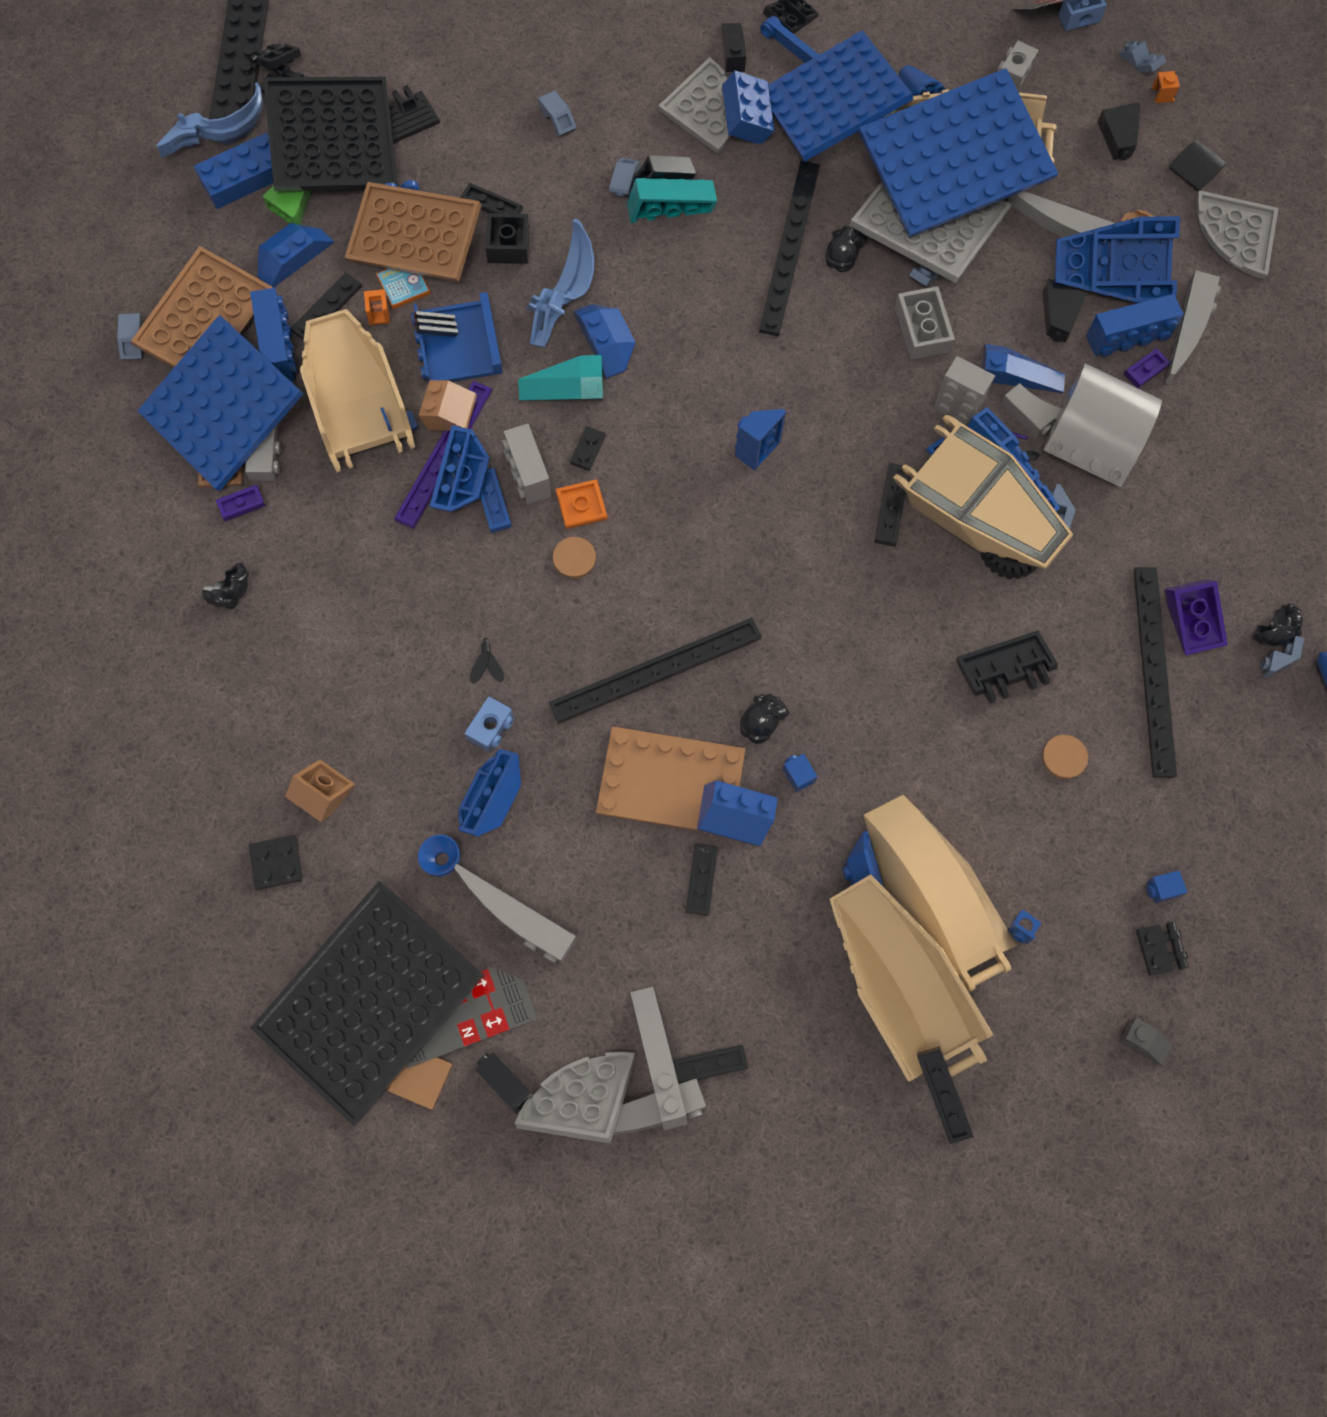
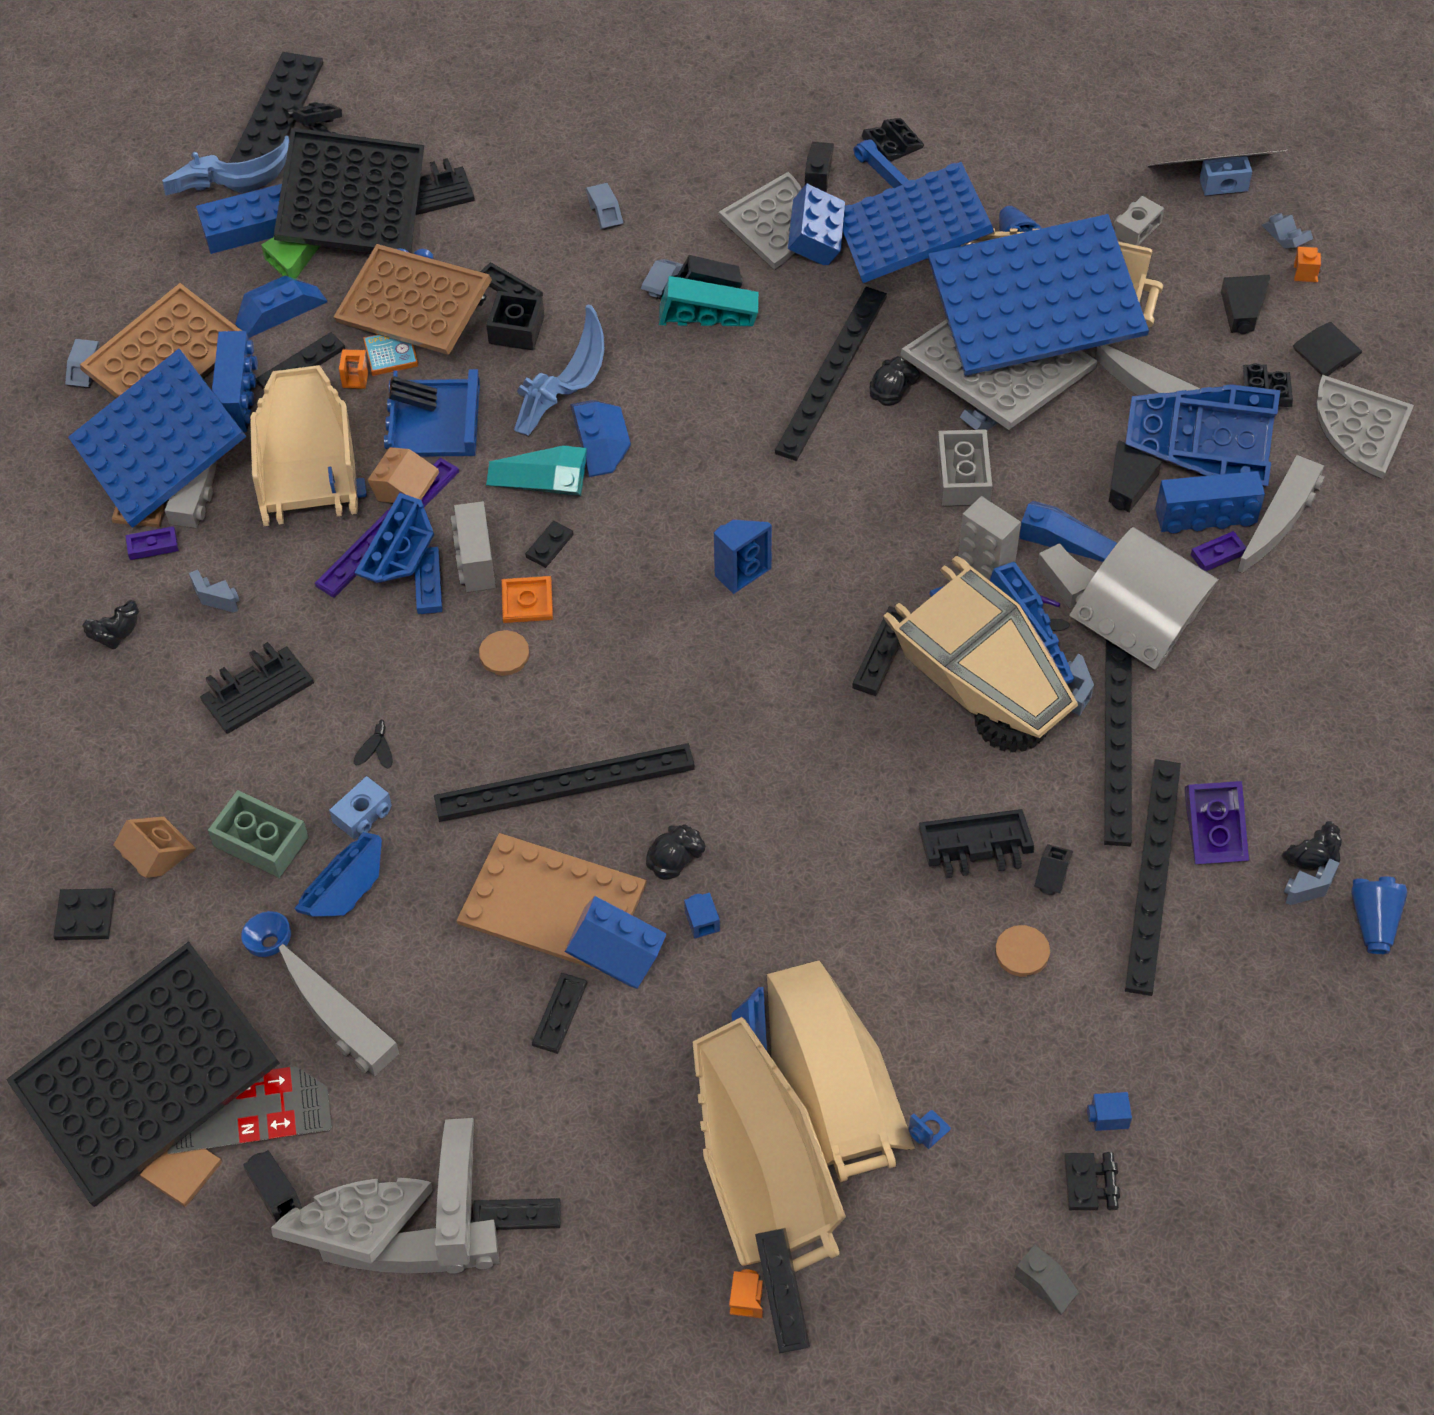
camera: 15 degrees right, 15 degrees down
(312, 545) = (215, 595): none -> sand blue slope
(369, 628) = (256, 691): none -> black hinge
(408, 764) = (258, 833): none -> sand green brick
(913, 1099) = (746, 1294): none -> orange window
(1076, 680) = (1053, 869): none -> black slope
(1102, 559) = (1118, 746): none -> black plate
(1155, 204) = (1257, 376): none -> black slope

